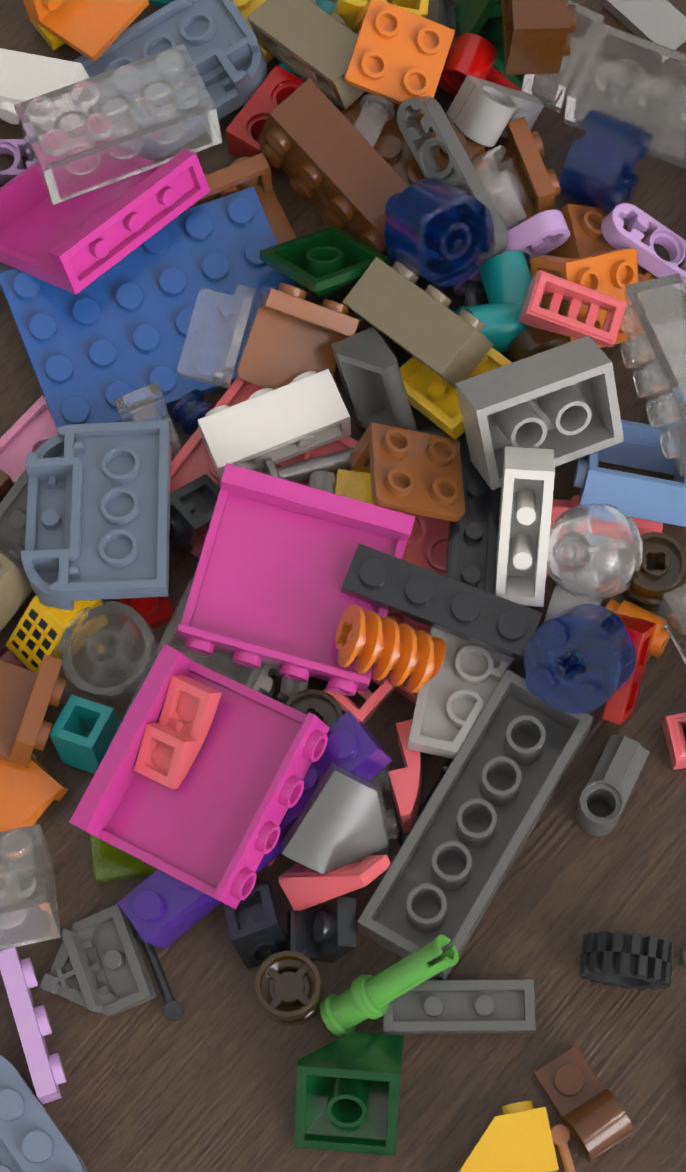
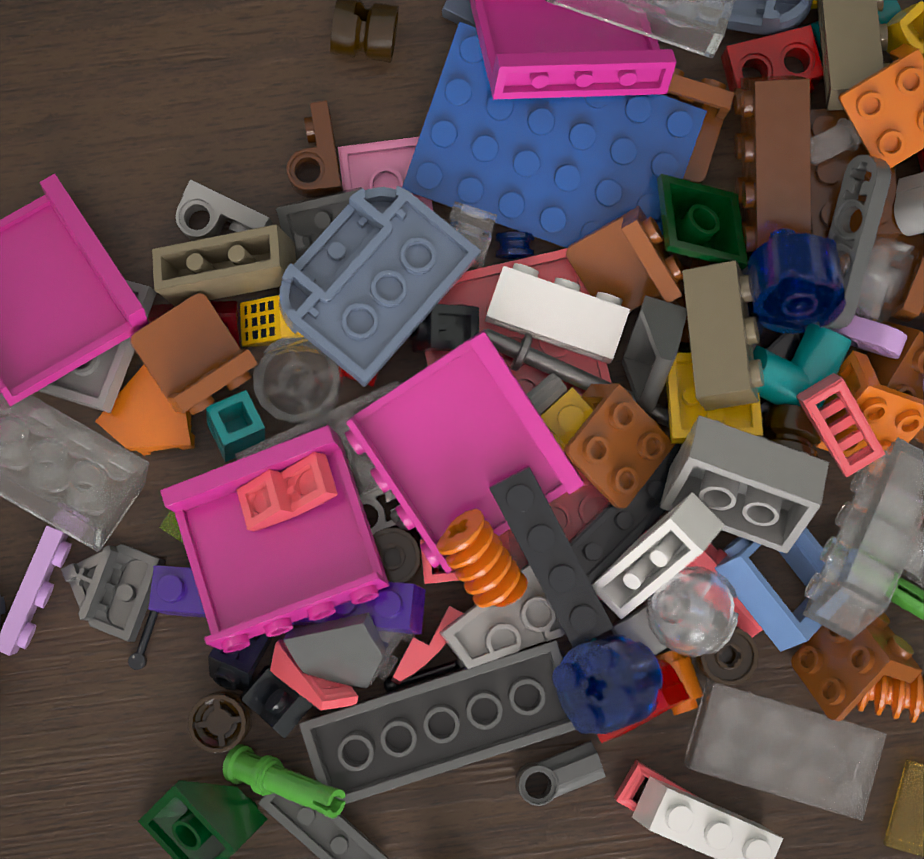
camera: 35 degrees right, 15 degrees up
(215, 335) = (576, 207): clear panel -> none

